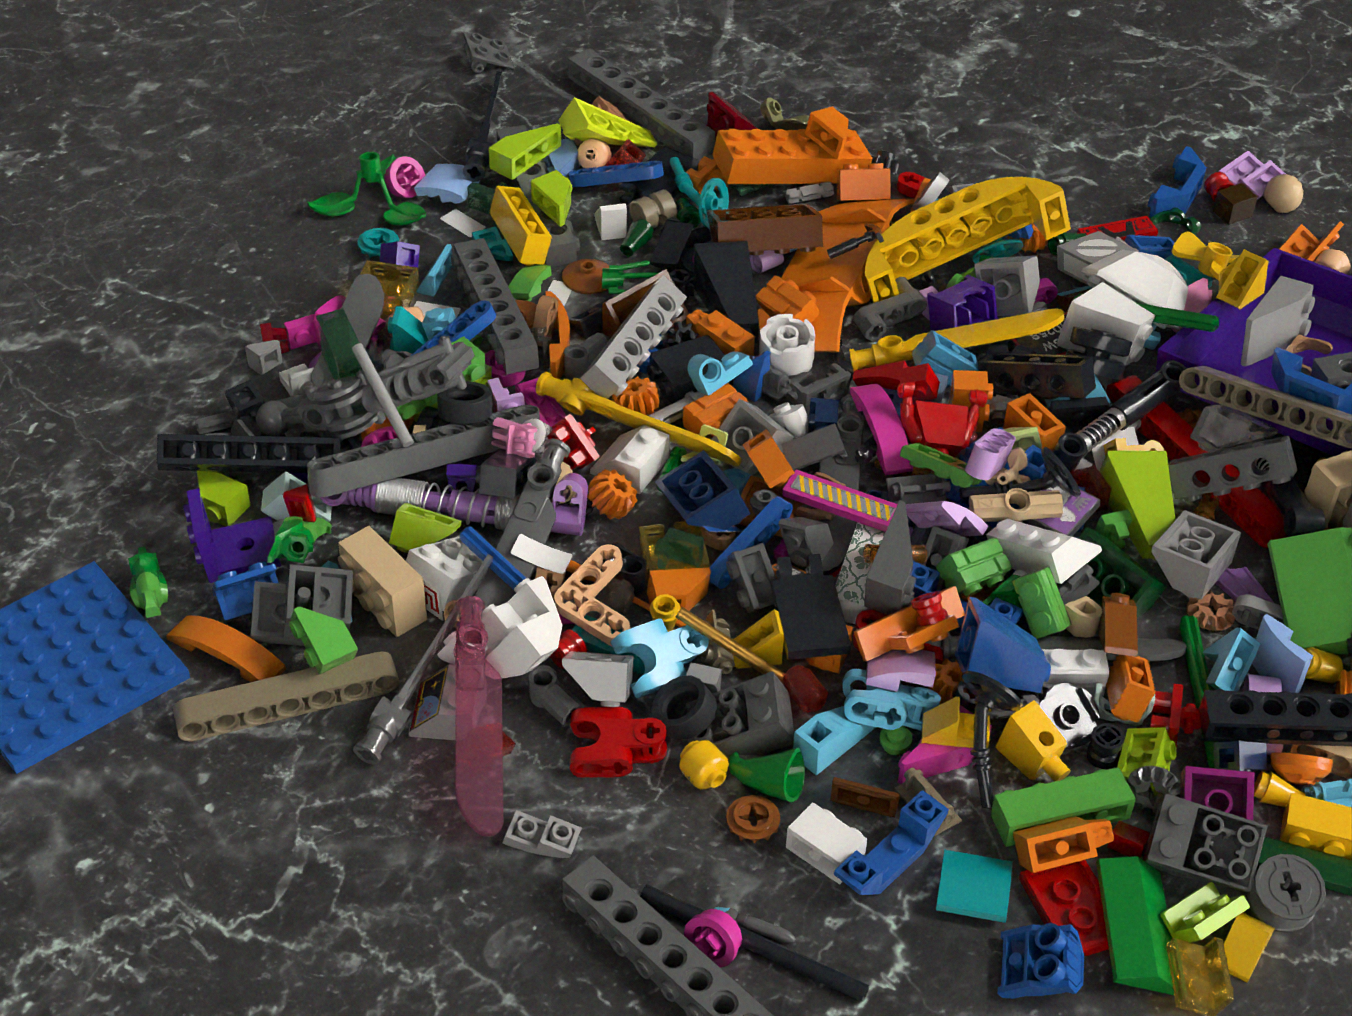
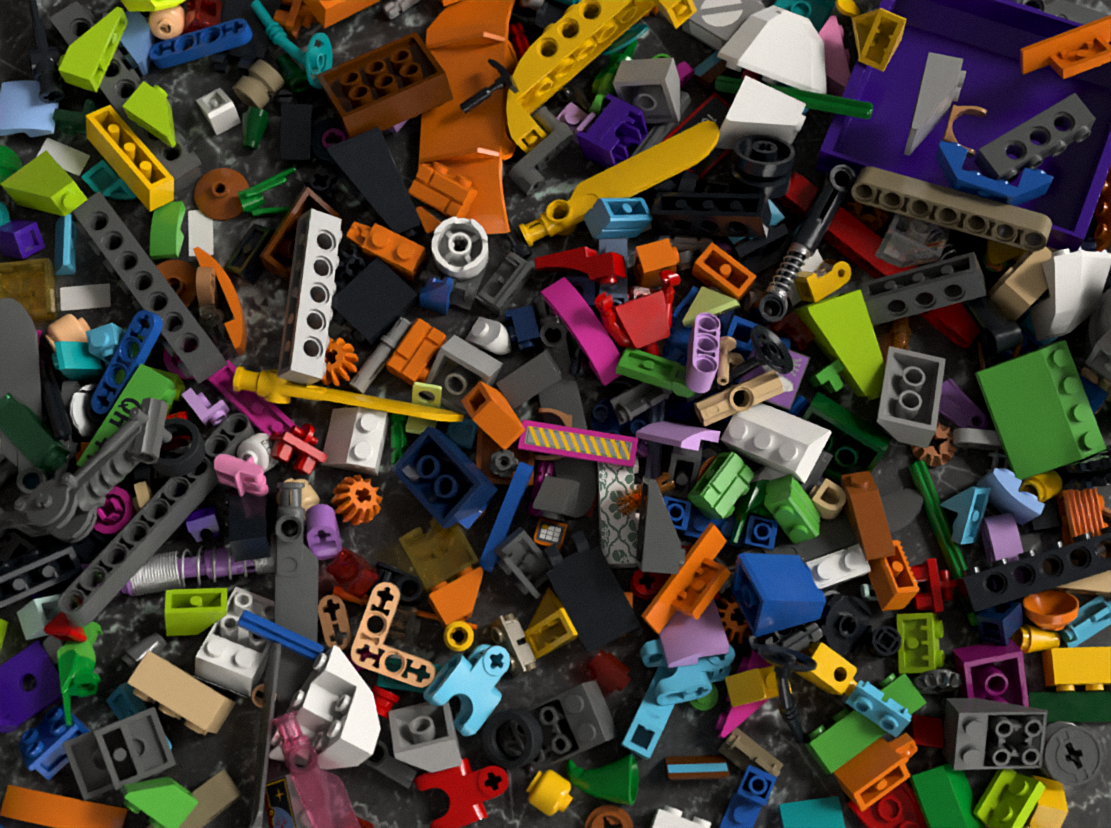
camera: 25 degrees left, 30 degrees up
(382, 395) = (98, 497): light grey bar -> none
(437, 226) = (44, 187): none -> lime slope
(541, 554) = (320, 608): white sticker -> none
(579, 357) = (263, 315): dark grey piece -> none
(582, 540) = (352, 572): none -> clear red brick
(680, 547) = (452, 559): clear green bracket -> none
(709, 675) = (517, 697): light grey slope -> none
(718, 372) = (407, 317): medium azure plate -> none
(728, 643) = (531, 654): pearl gold bar -> none
(929, 608) = (701, 567): red wheel -> none
(1079, 781) = (888, 715): none -> medium azure hinge

